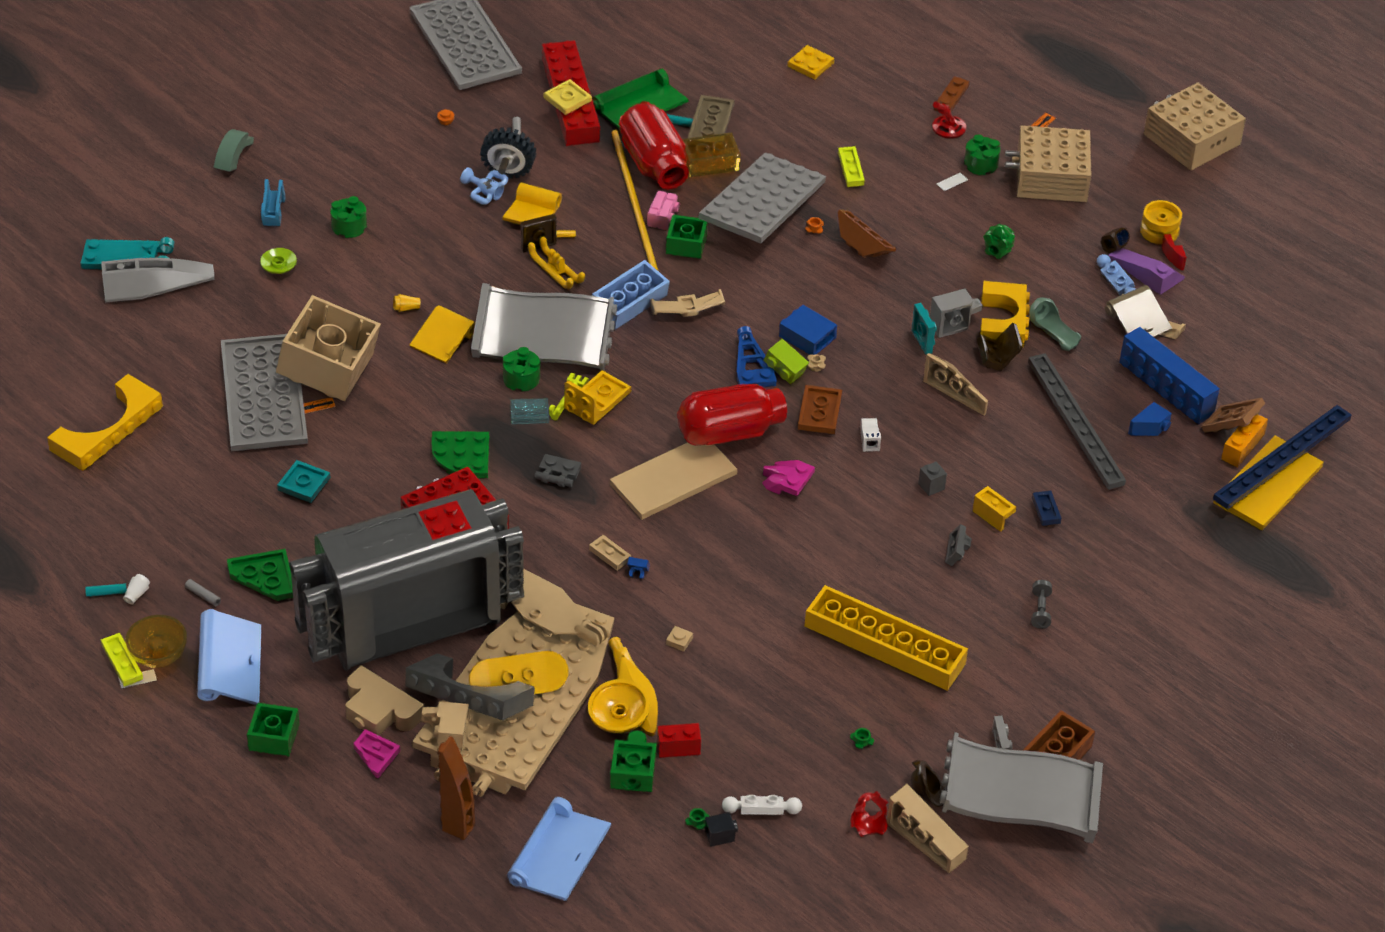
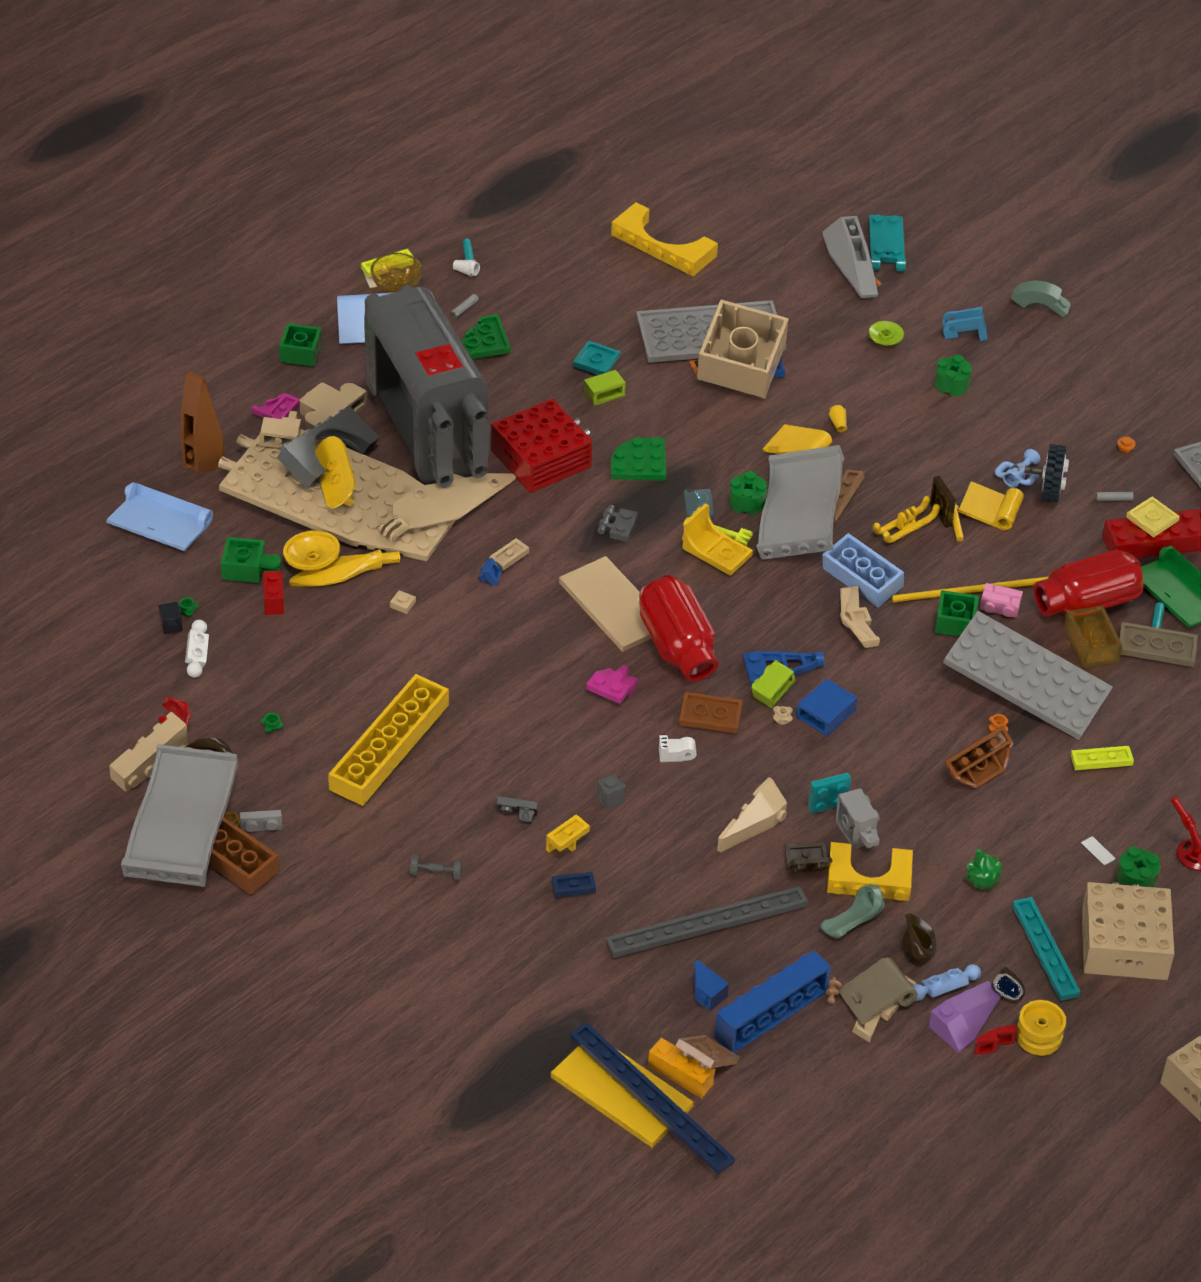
camera: 90 degrees right, 0 degrees up
(353, 474) = (604, 387): none -> lime brick
(1070, 217) = (1046, 949): none -> teal plate
(1079, 289) = (919, 939): none -> dark brown hat

